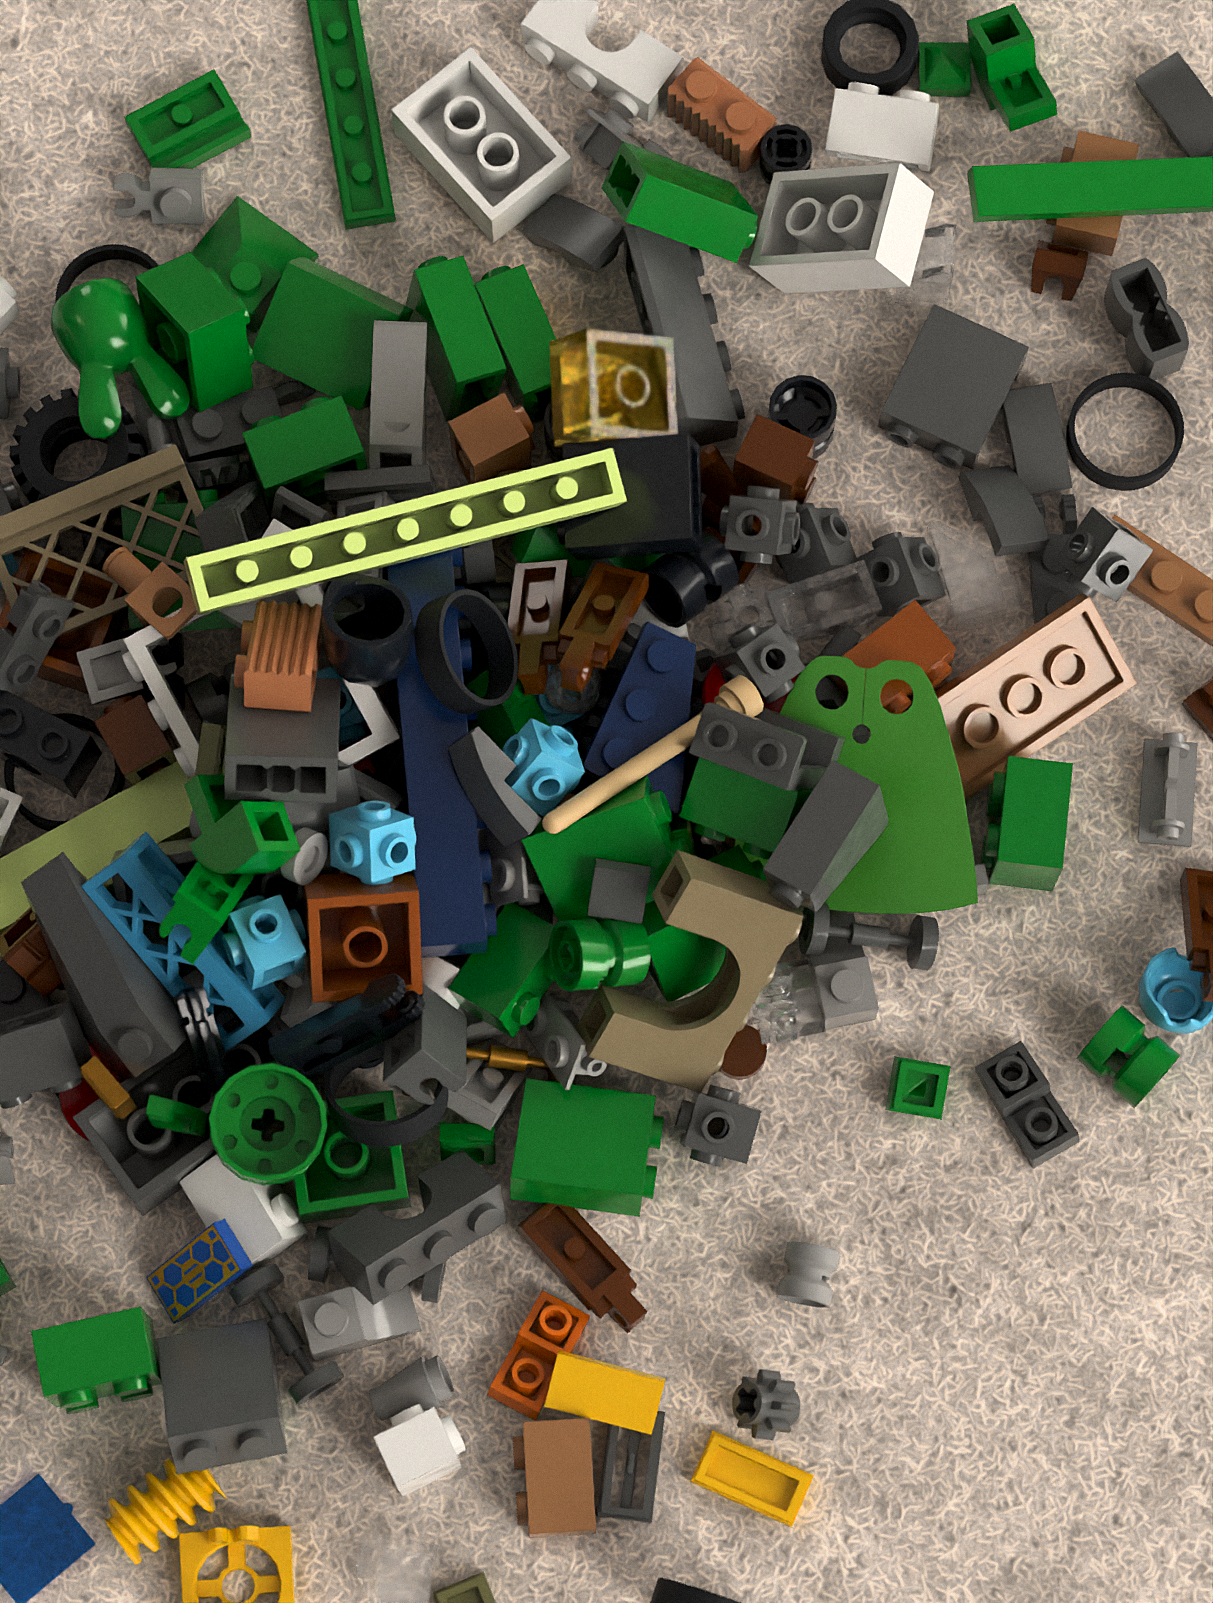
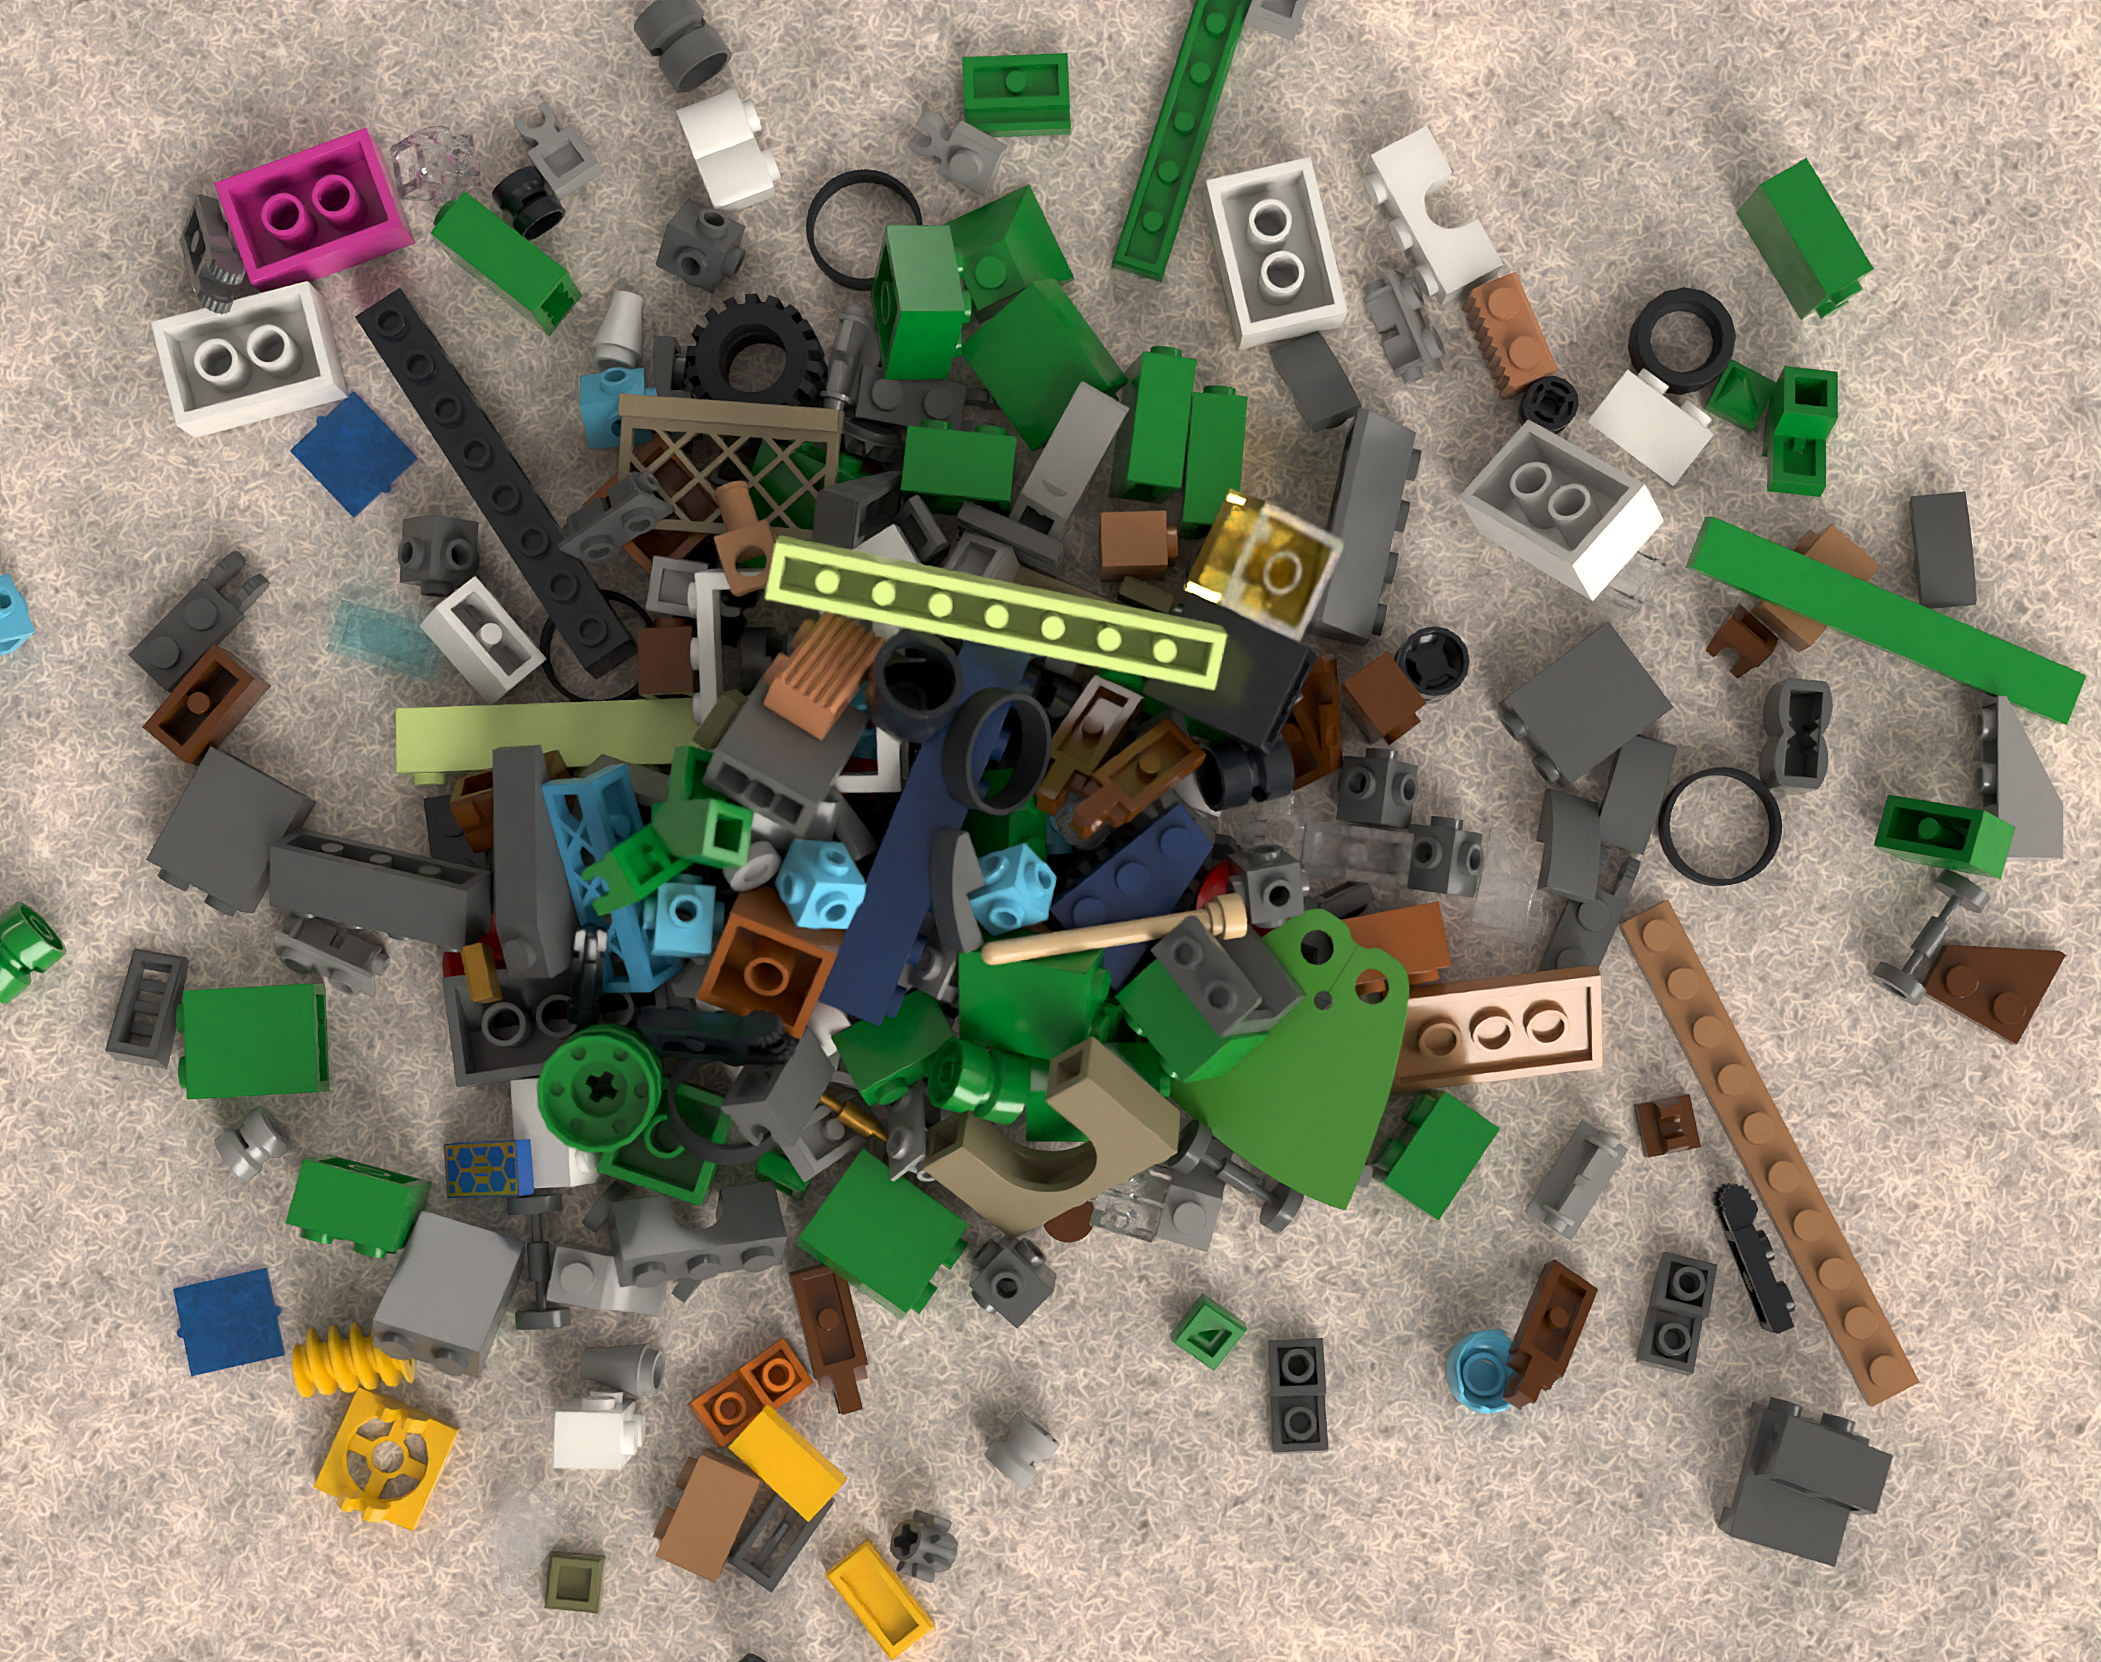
camera: 25 degrees right, 10 degrees up
(104, 338) = (830, 266): green piece -> none
(176, 1116) = (524, 1025): green tile -> none
(619, 890) = (1024, 1038): dark grey tile -> none
(680, 202) = (1424, 407): green brick -> none
(778, 522) = (1351, 752): dark grey brick -> none
(826, 838) = (1232, 1093): dark grey slope -> none
(1103, 556) = (1635, 942): dark grey brick -> none
(1145, 1067) = (1410, 1409): green wheel -> none

